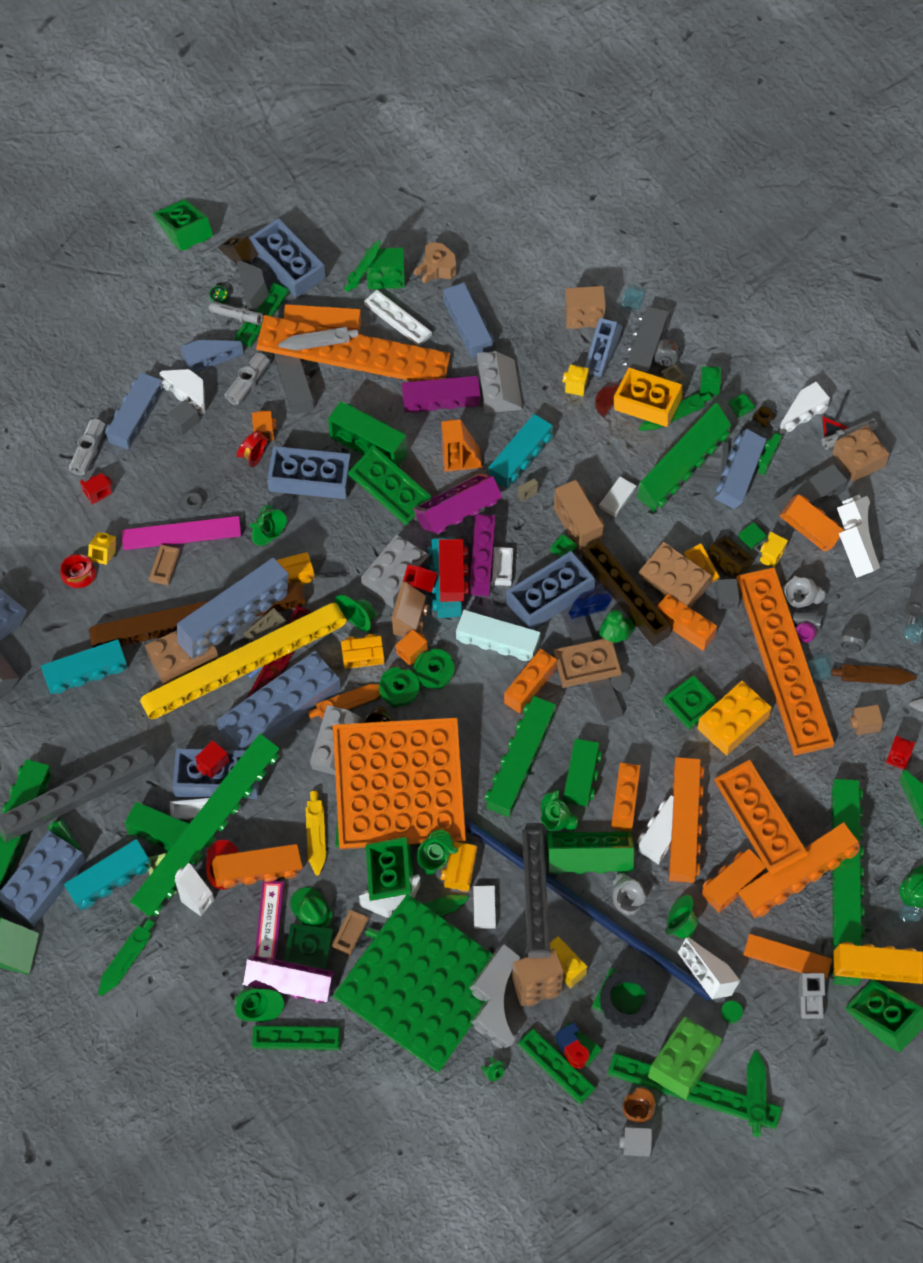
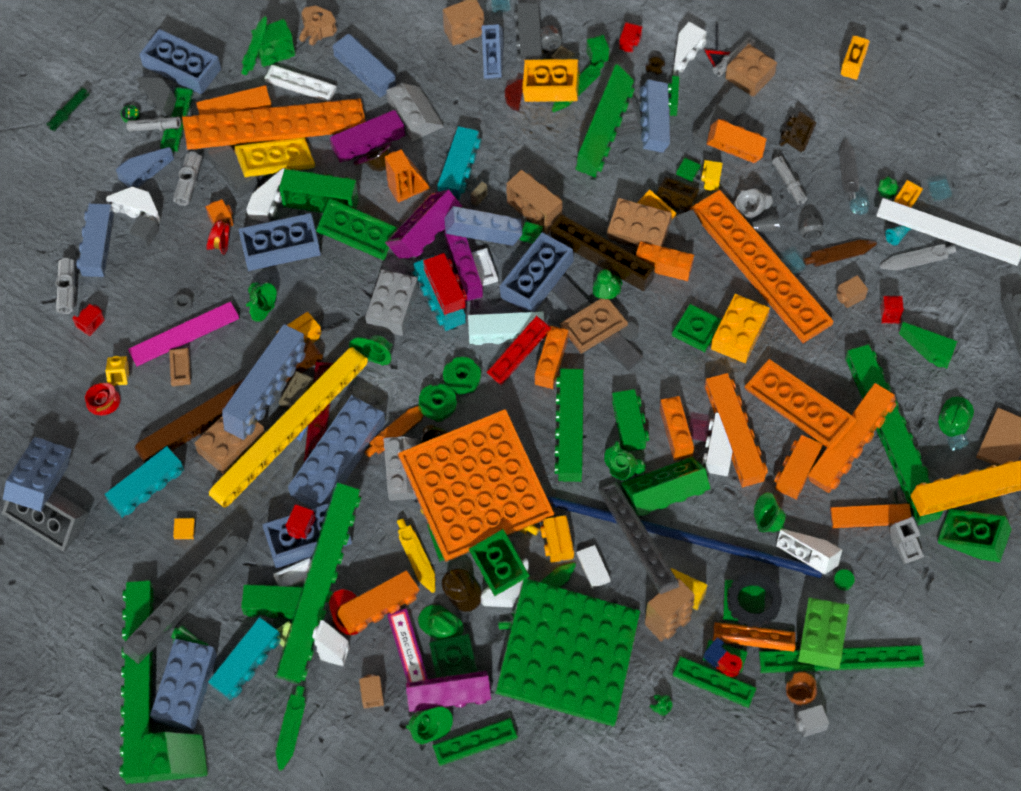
camera: 20 degrees left, 0 degrees up
(104, 726) = (184, 528): none -> light orange tile
(154, 273) = (63, 114): none -> dark green pin
(184, 224) = (72, 62): green slope -> none
(215, 951) = (371, 691): none -> medium nougat brick
(239, 249) = (132, 68): dark brown slope -> none
(312, 426) = (264, 200): none -> white slope
(319, 339) = (241, 122): light grey piece -> none
(339, 385) = (273, 156): none -> yellow tile
(345, 883) = (461, 590): none -> dark brown piece
(350, 932) = (484, 632): medium nougat tile -> none
(362, 651) = (392, 382): light orange brick -> none
(409, 611) = (420, 333): medium nougat slope -> none
(411, 646) = (434, 363): orange brick -> none
(420, 578) = (418, 300): red brick -> none
(435, 851) = (533, 533): green hair -> none
(436, 417) = (375, 159): none -> dark brown piece
(490, 987) = (631, 634): light grey arch -> none
(499, 663) = (518, 350): none -> red tile
(515, 524) = (483, 226): none -> sand blue brick
(576, 380) = (481, 86): yellow brick -> none
(588, 606) = (576, 275): clear blue plate -> none
(615, 1036) = (755, 636): none -> orange tile
(617, 496) = (559, 174): white tile -> none
(631, 888) = (715, 505): light grey piece -> none
(648, 806) = (699, 429): none -> clear pink tile
(741, 405) = (632, 62): green tile -> none
(749, 378) = (630, 37): none -> red brick
(756, 1094) = (895, 642): green piece -> none
(806, 631) = (769, 234): magenta tile -> none
(853, 589) = (793, 186): none -> light grey pin
(857, 536) = (779, 139): white arch -> none
(885, 533) = (797, 131): none -> dark brown bracket

